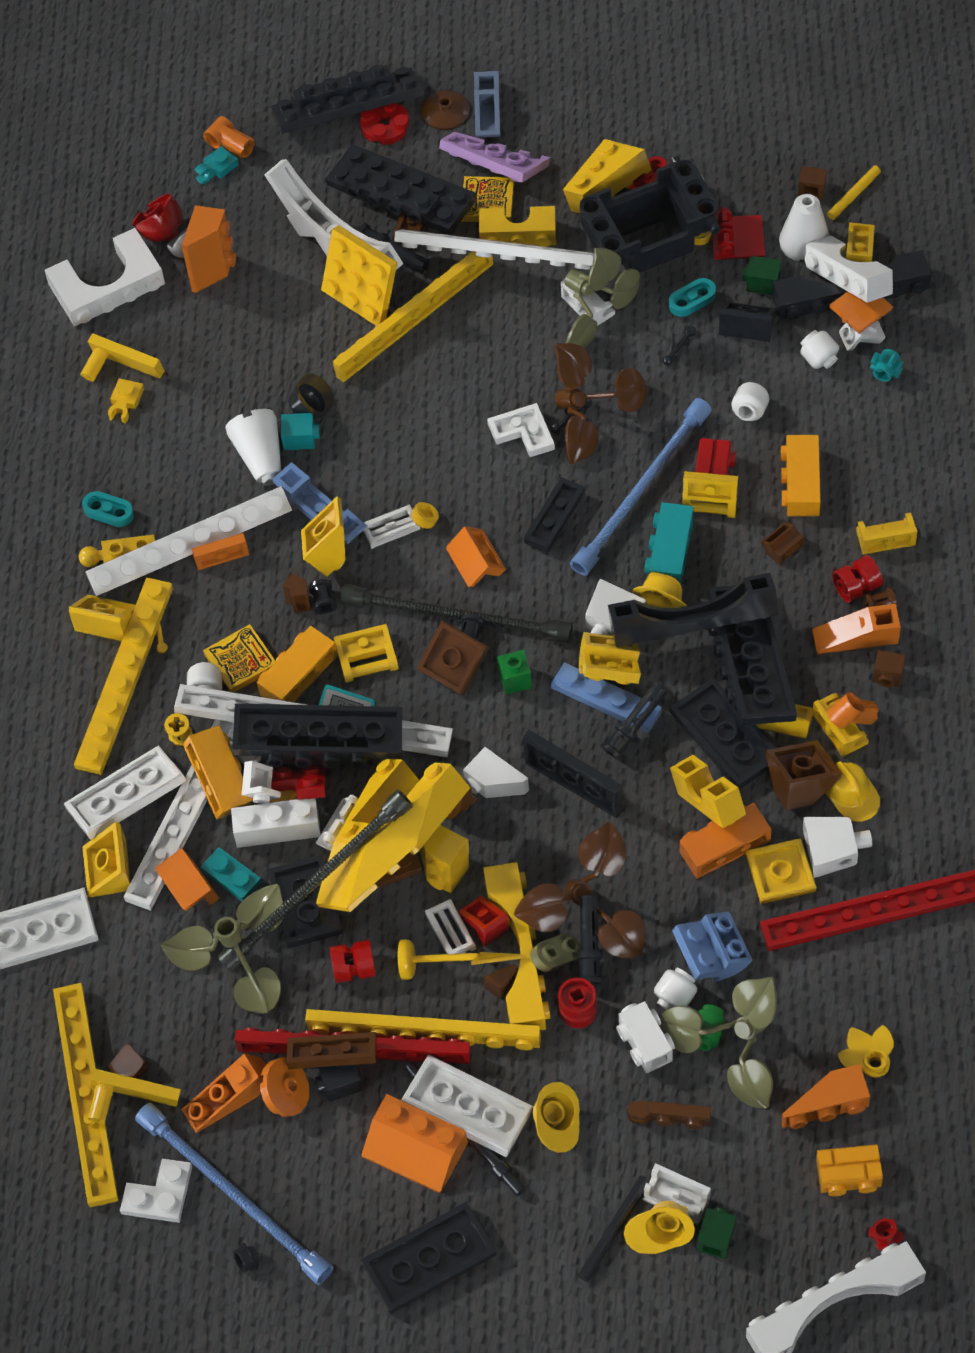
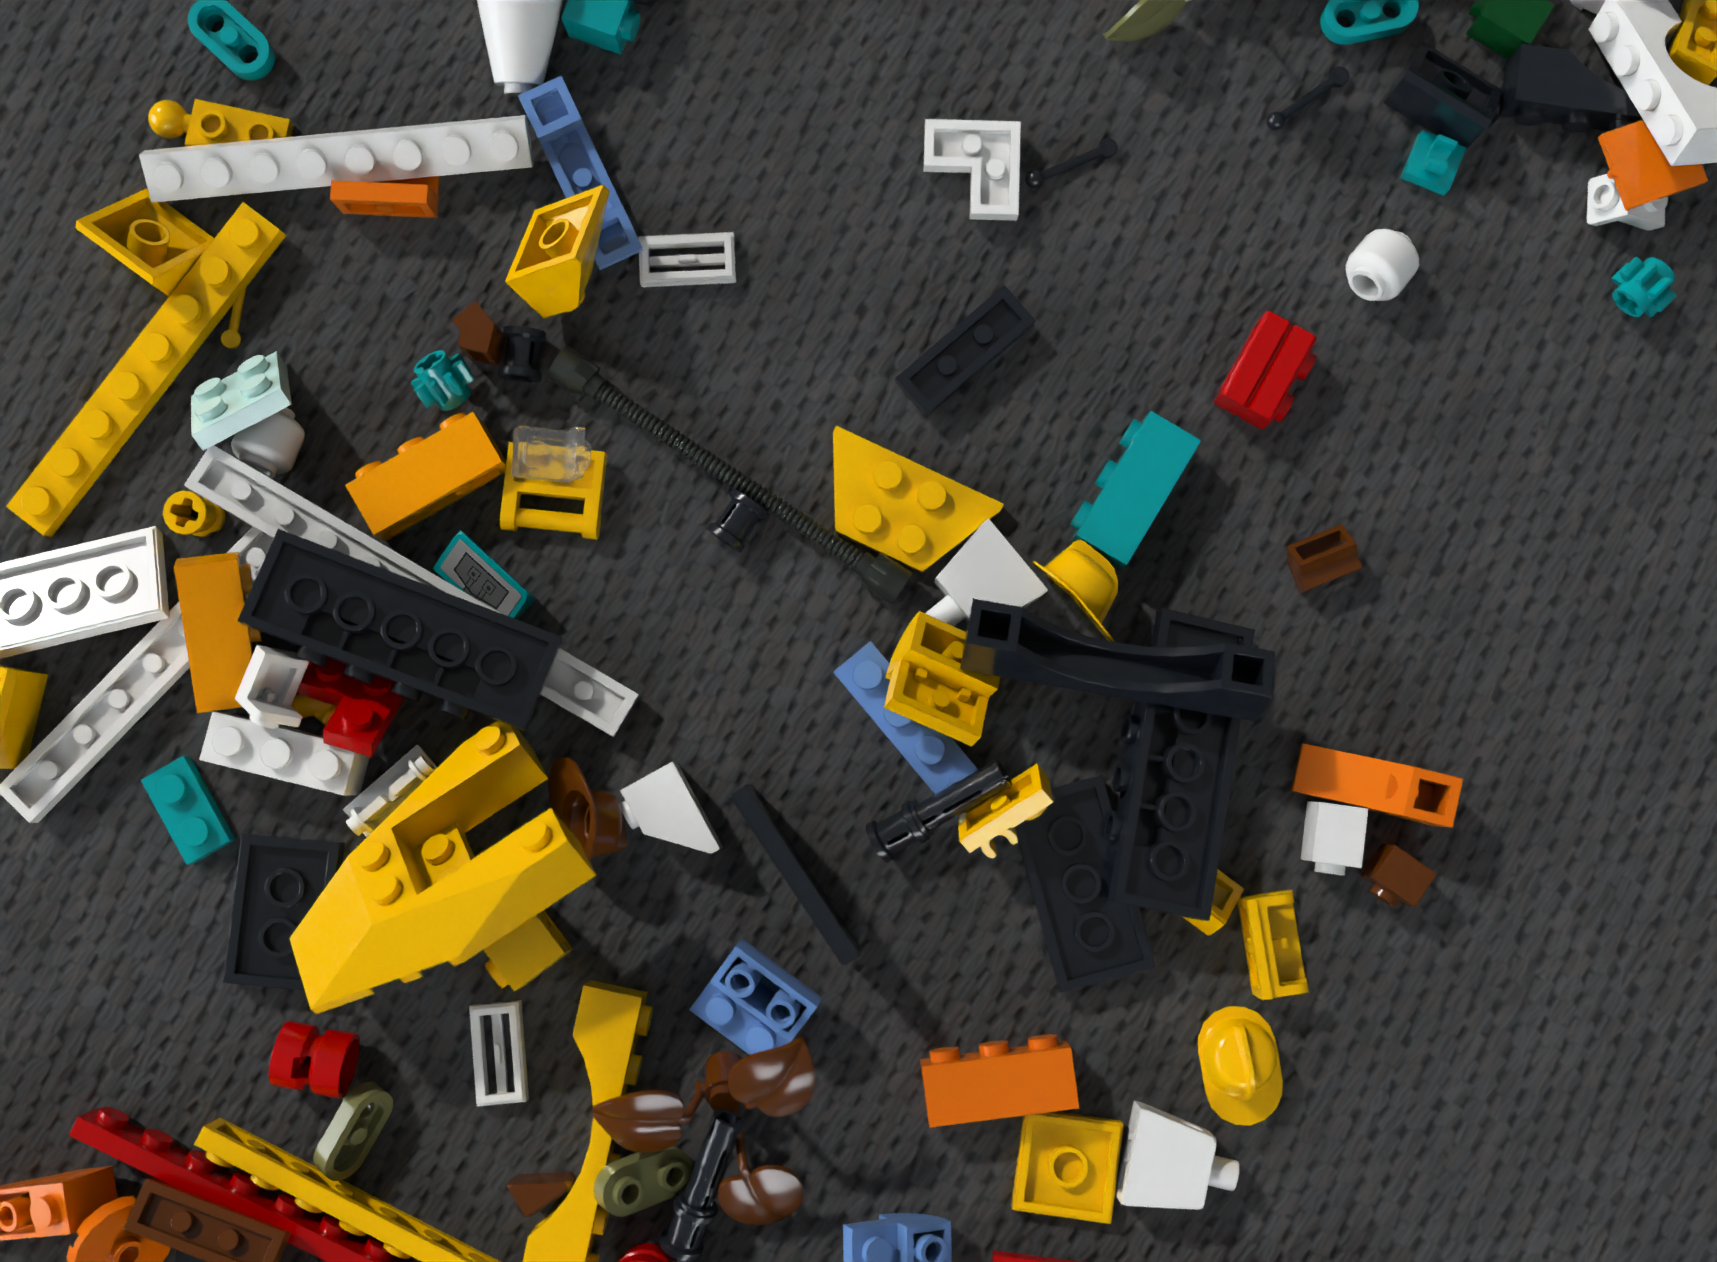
camera: 15 degrees right, 25 degrees up
(185, 880) = (107, 802): orange panel -> none
(188, 659) = (239, 400): none -> light aqua plate
(192, 949) = (76, 921): olive plant -> none
(240, 658) = (347, 414): yellow tile -> none
(286, 621) = (442, 380): none -> teal gear
(361, 629) = (550, 454): none -> clear bracket
(387, 990) = (353, 1131): none -> olive plate
(392, 809) = (432, 894): pearl dark grey hose -> none
(407, 958) = (527, 1156): yellow piece -> none
(424, 515) = (749, 264): yellow tile -> none
(452, 657) = (688, 562): reddish brown plate -> none
(474, 555) = (803, 376): orange panel -> none
(486, 919) = (553, 1070): red slope -> none
(514, 672) = (779, 631): green brick -> none
(551, 595) = (901, 504): none -> yellow wing
(565, 841) = (755, 1001): none -> medium blue brick
(572, 367) = (1104, 96): reddish brown plant -> none
(587, 556) = (1275, 254): medium blue hose -> none
(676, 696) = (1004, 811): none -> yellow plate
(710, 489) = (1240, 425): yellow plate -> none
(716, 799) = (997, 994): yellow arch -> none
(756, 350) = (1433, 162): none -> teal tile
(801, 475) = (1409, 444): light orange brick -> none
(801, 773) = (1174, 1016): reddish brown slope -> none
(819, 349) = (1543, 209): white head -> none
(847, 662) = (1334, 836): none -> white brick
(852, 710) = (1303, 945): orange piece -> none
(861, 577) = (1427, 685): red wheel -> none
(882, 598) = (1436, 742): reddish brown bush -> none
(887, 535) = (1504, 613): yellow hinge -> none

